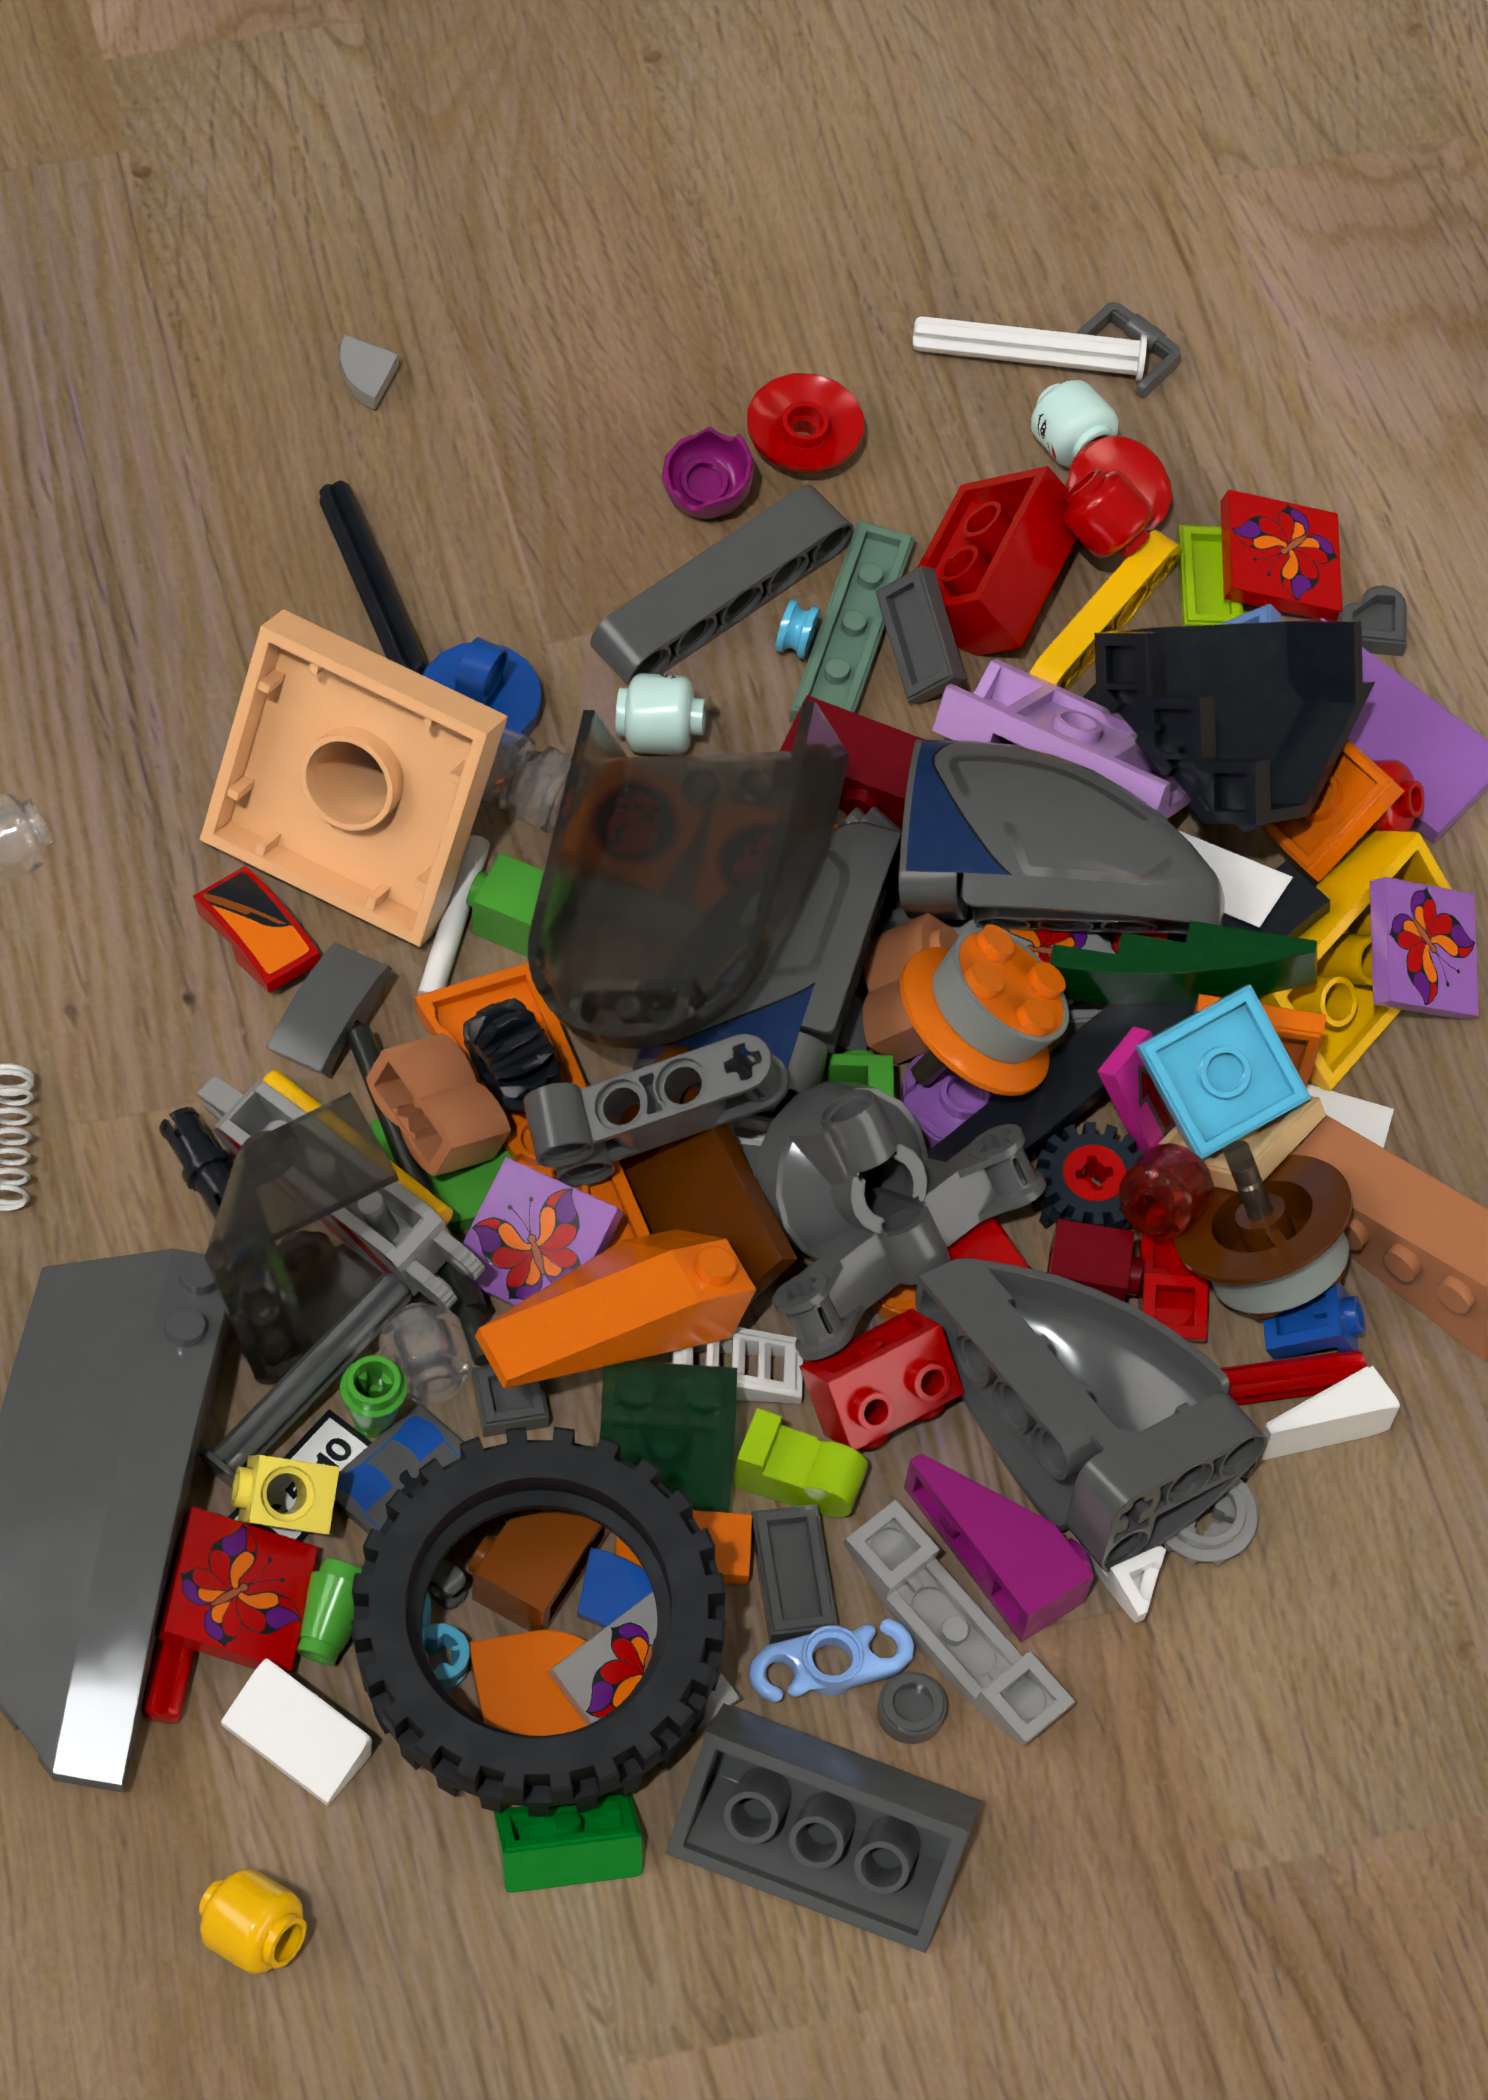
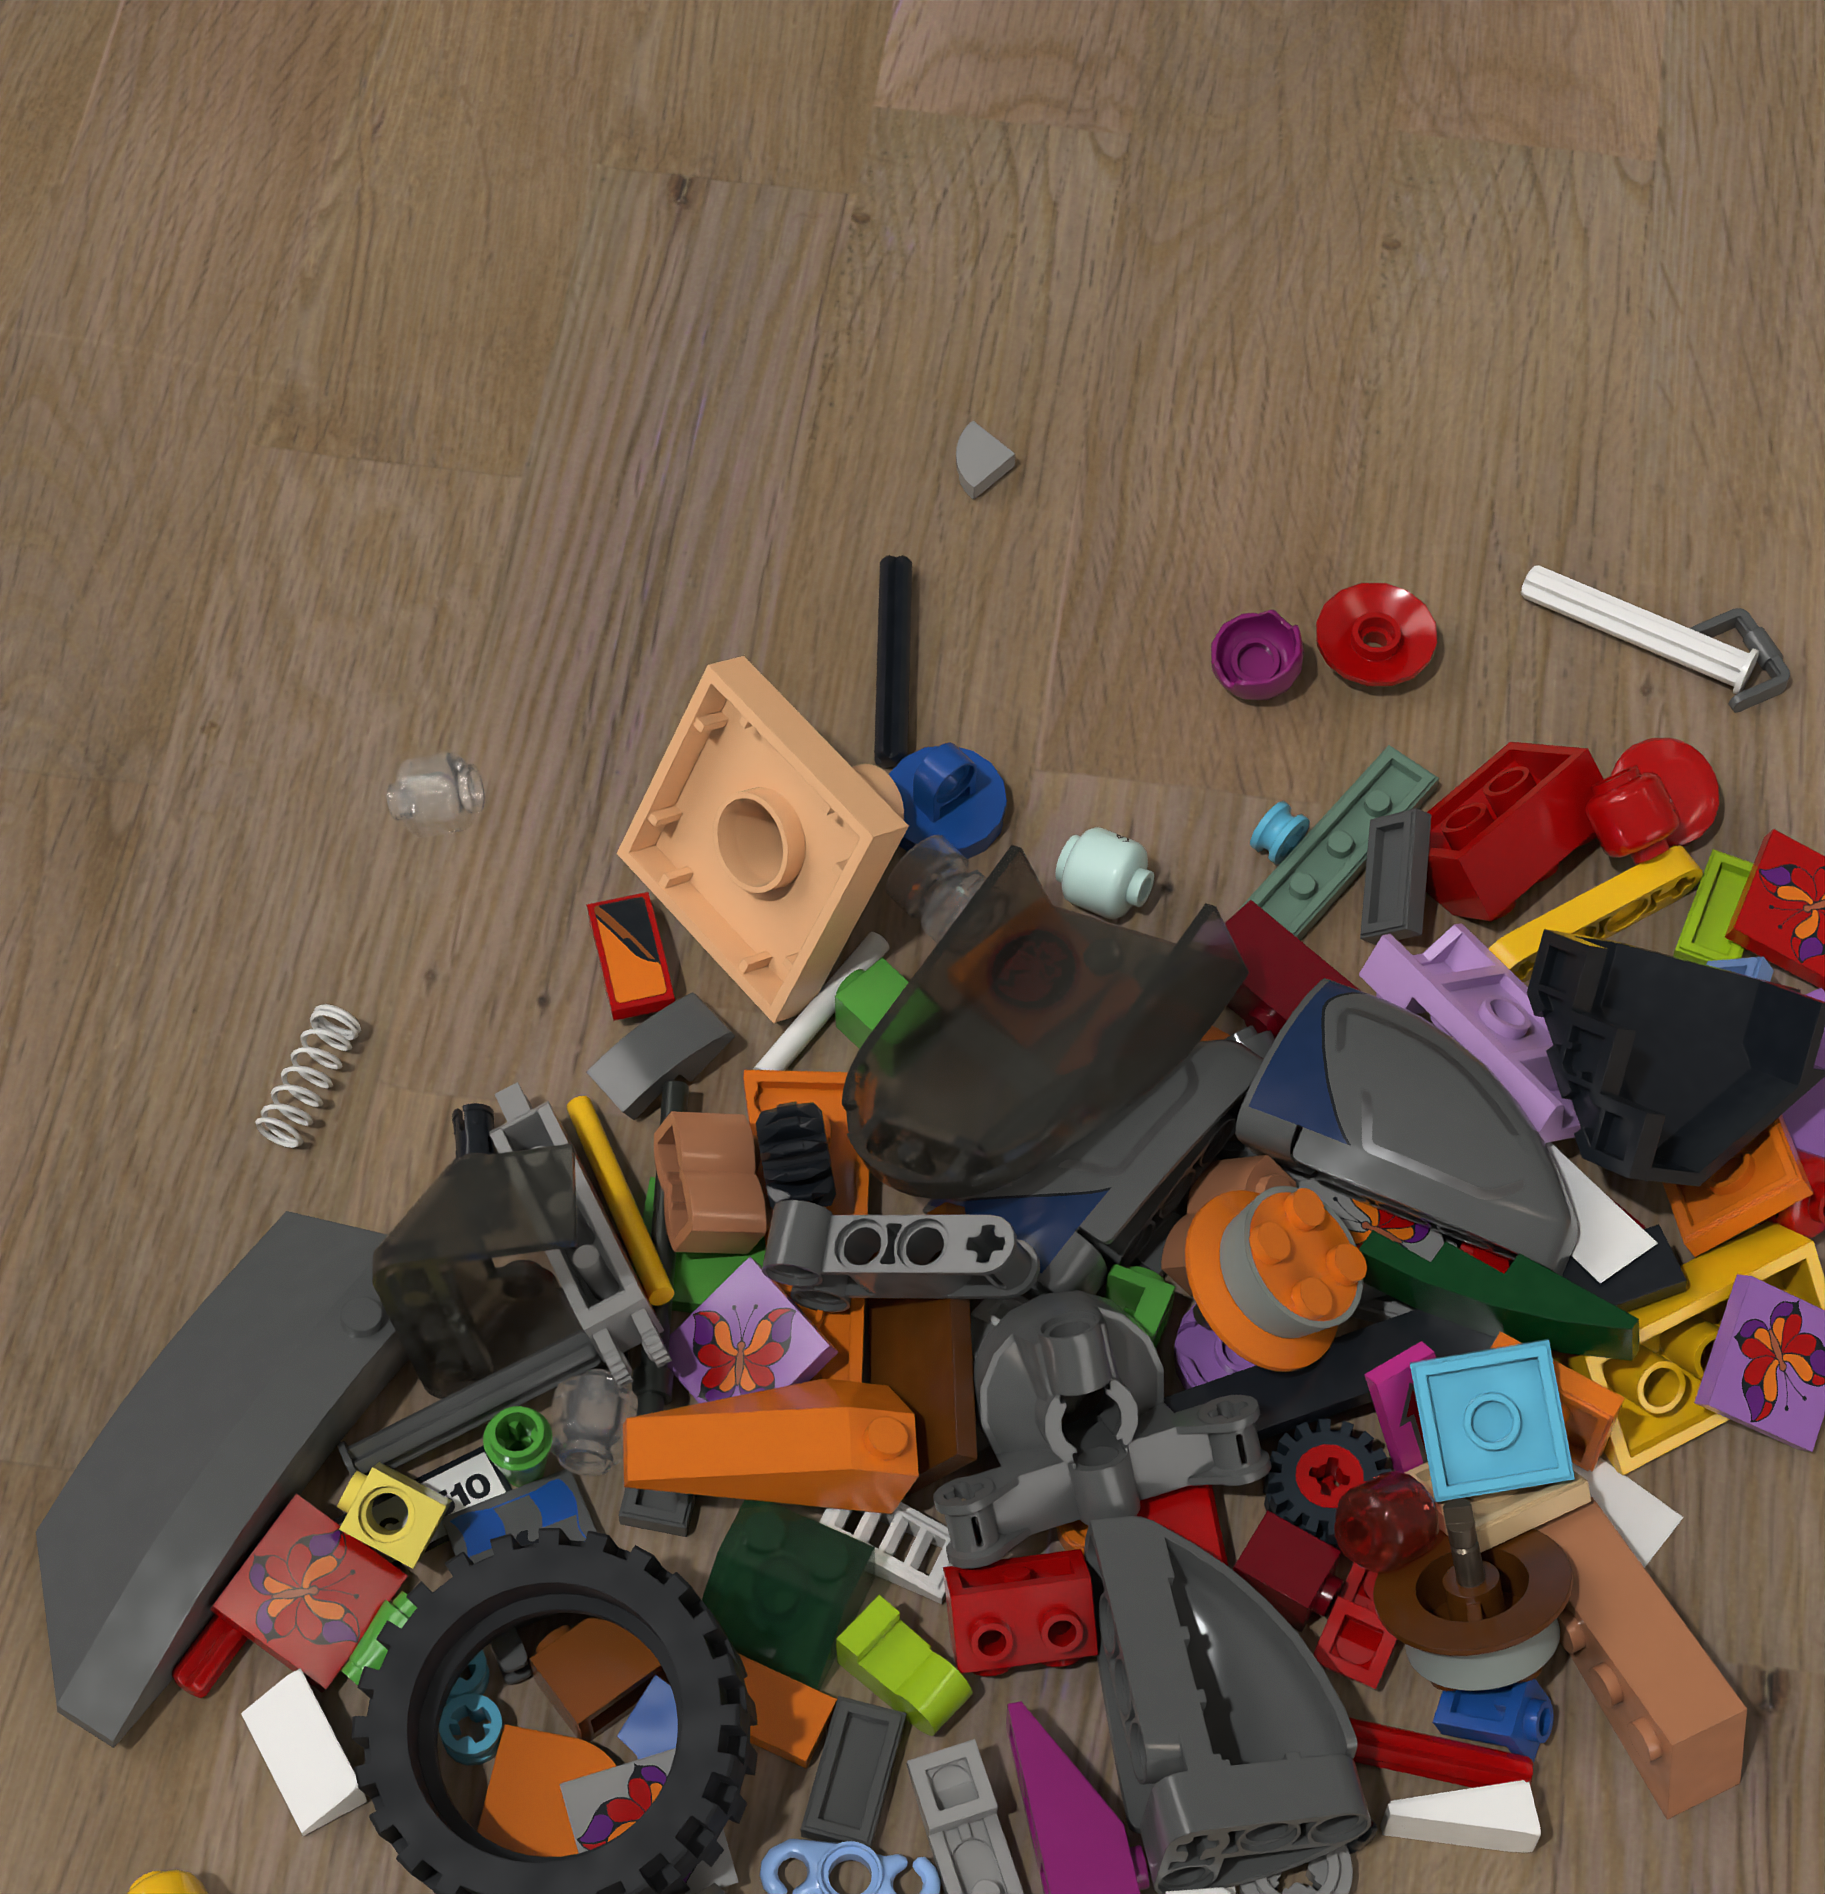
camera: 30 degrees right, 0 degrees up
(722, 585) = (1225, 767): dark grey beam -> none
(1070, 418) = (1645, 708): light aqua head -> none

